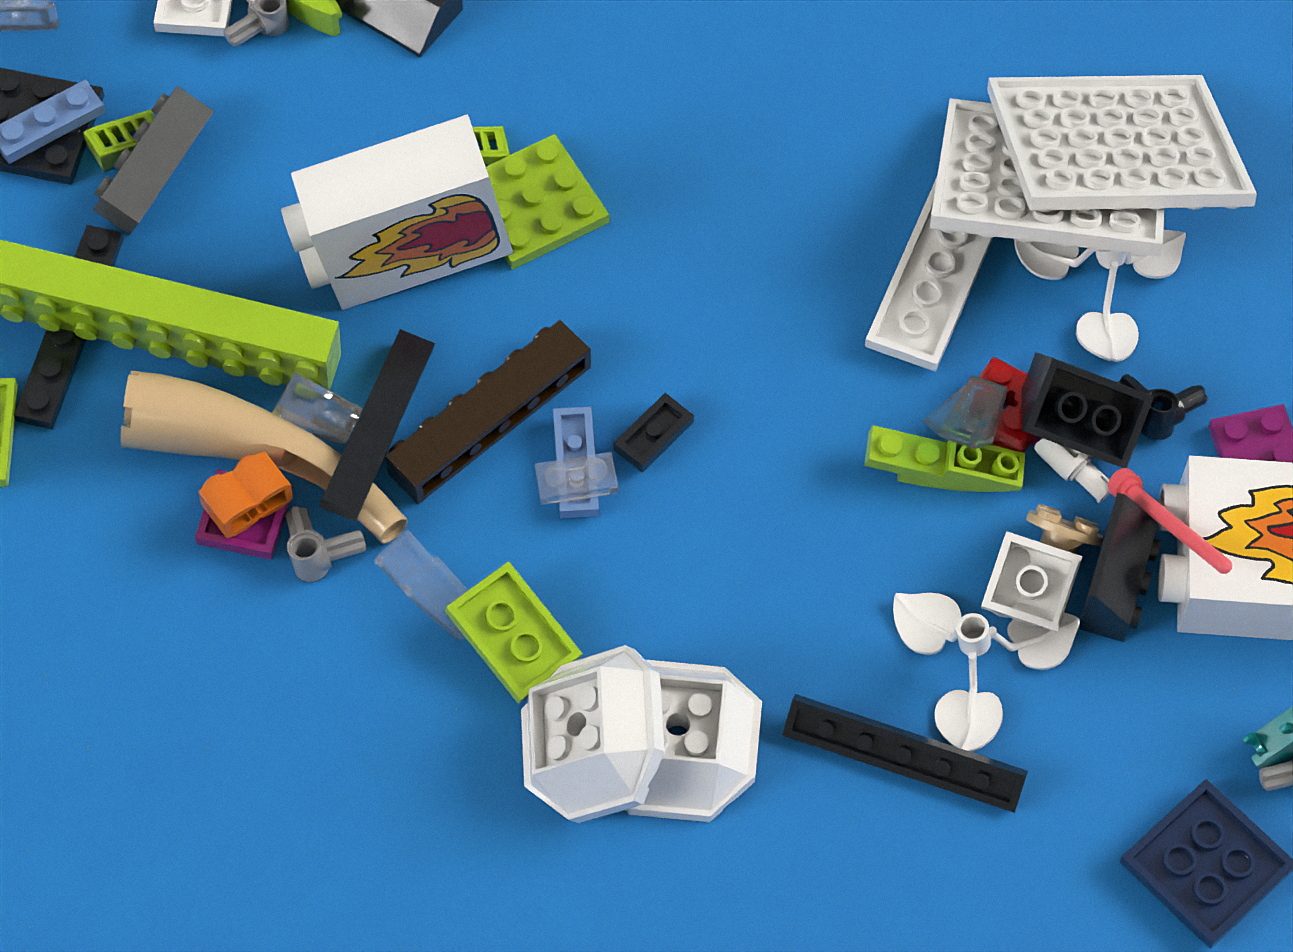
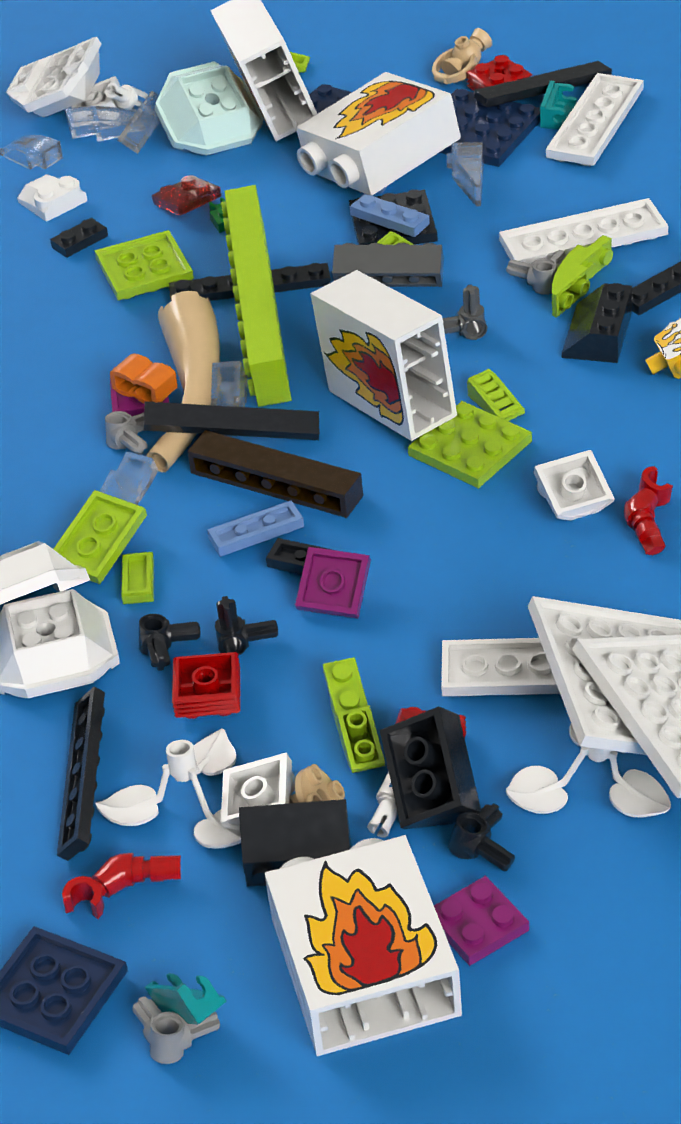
camera: 75 degrees right, 20 degrees down
(311, 120) = (470, 318): none -> dark grey axle
(576, 478) = (235, 525): clear plate -> none
(592, 613) = (137, 578): none -> lime tile
(677, 128) = (573, 486): none -> white slope
(719, 606) = (158, 634): none -> black axle
(724, 410) = (333, 582): none -> magenta plate
(742, 83) = (640, 510): none -> red piece
(753, 532) = (233, 632): none -> black axle
(810, 572) = (206, 685): none -> red brick
(970, 413) = (384, 705): clear light blue slope -> none
(1076, 761) = (117, 874): none -> red piece
(1131, 485) = (378, 826): coral piece -> none

